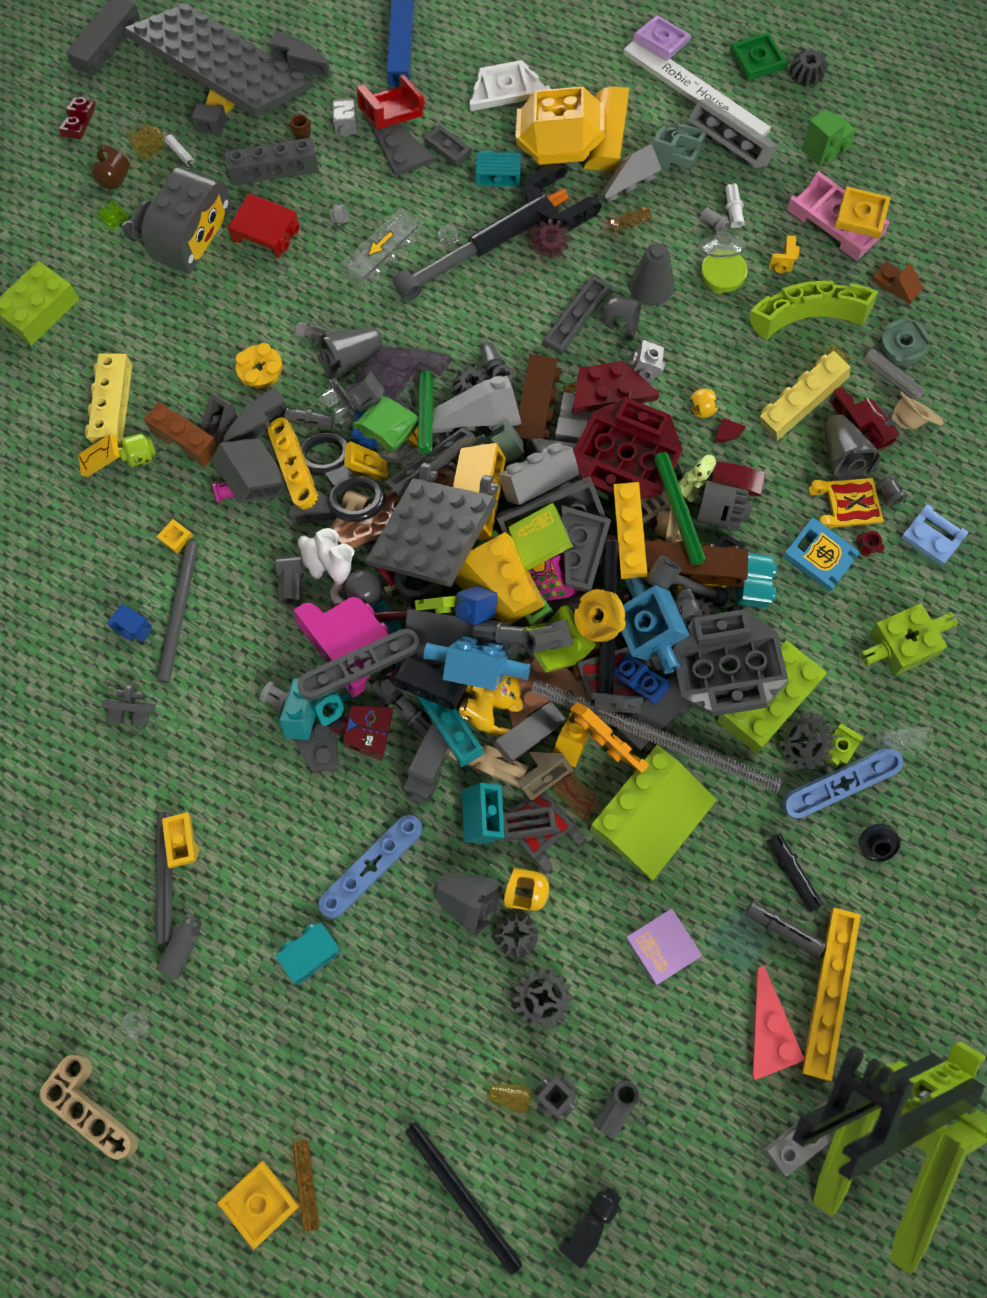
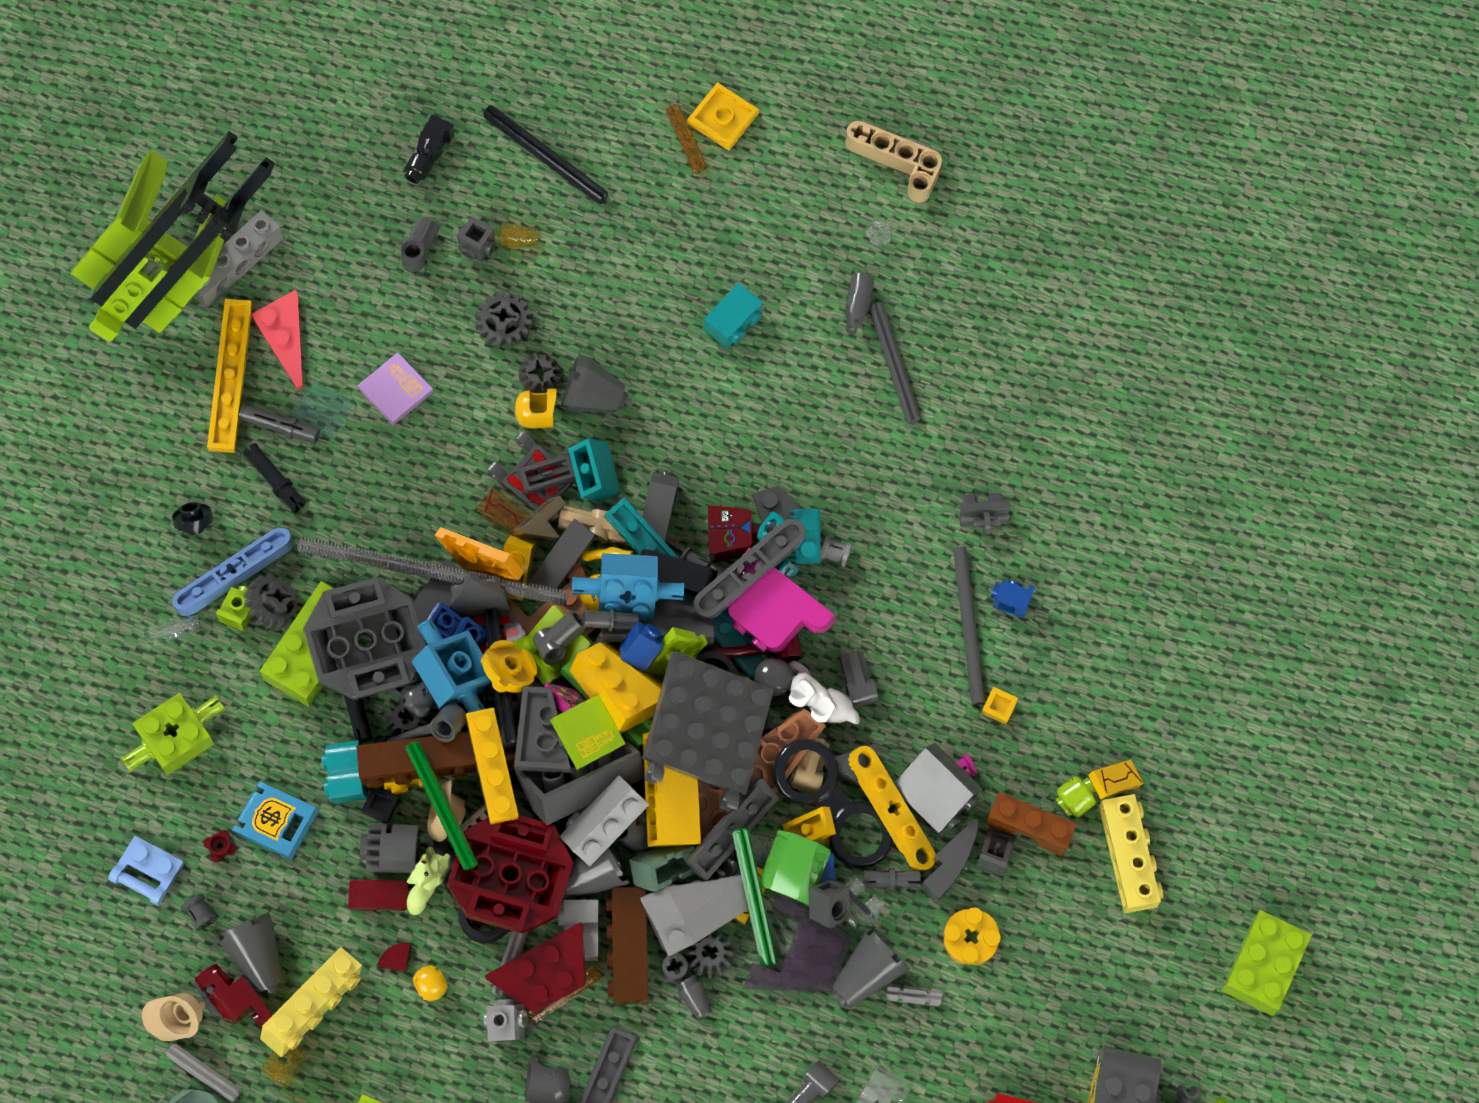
camera: 160 degrees right, 0 degrees up
(179, 840) = (886, 388): yellow slope -> none
(352, 885) = (680, 429): medium blue piece -> none
(653, 813) = (422, 498): lime slope -> none
(850, 501) = (244, 892): flag -> none

